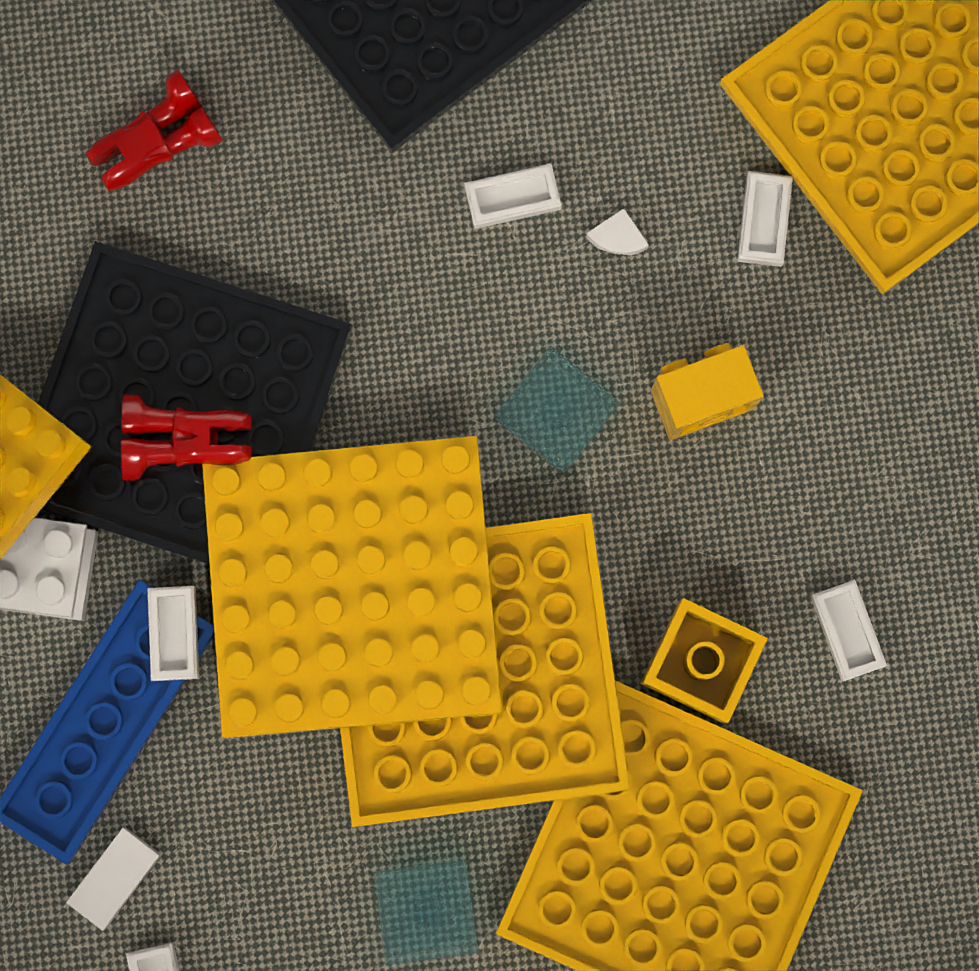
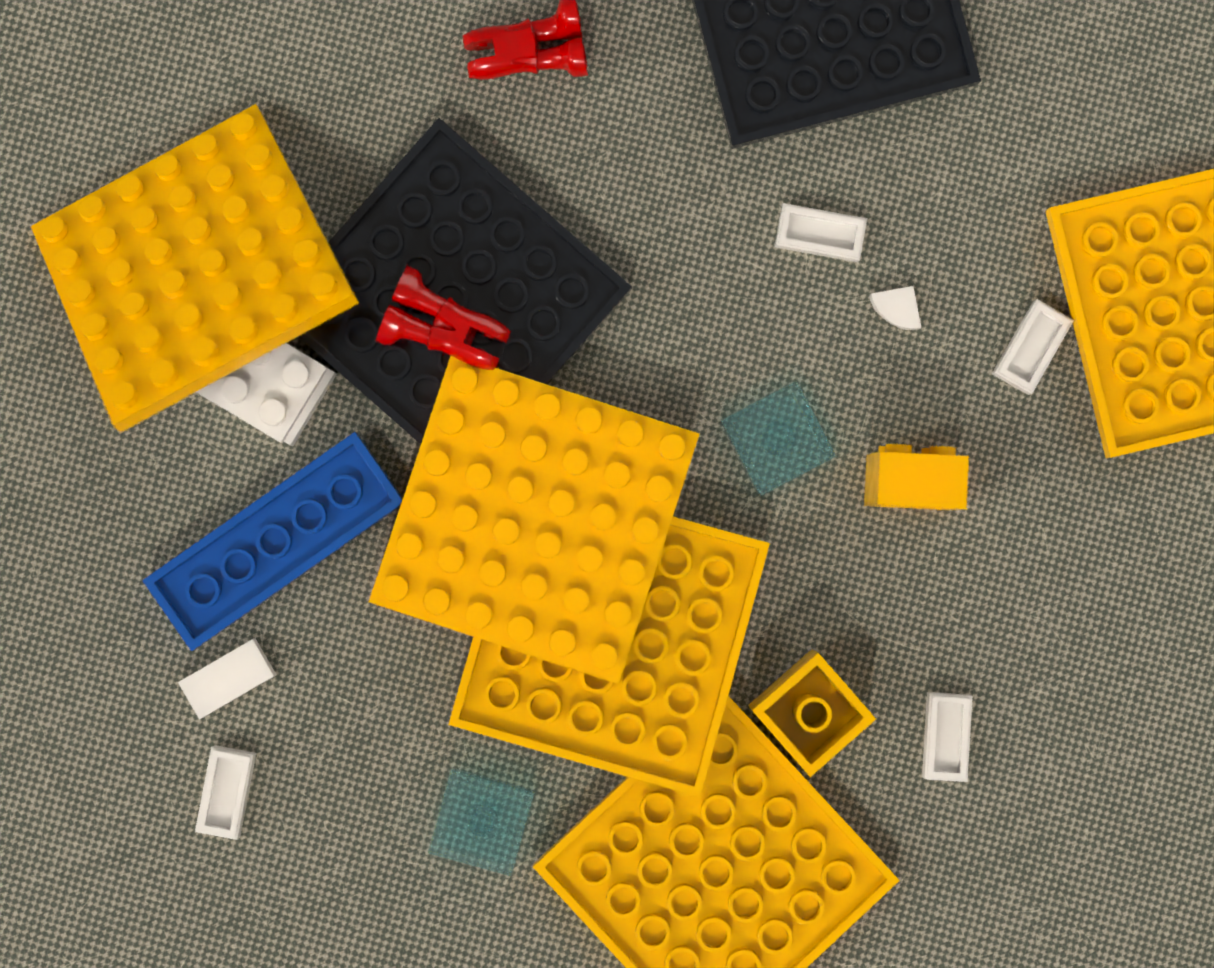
camera: 15 degrees right, 5 degrees up
(173, 633) = (364, 492): white tile -> none

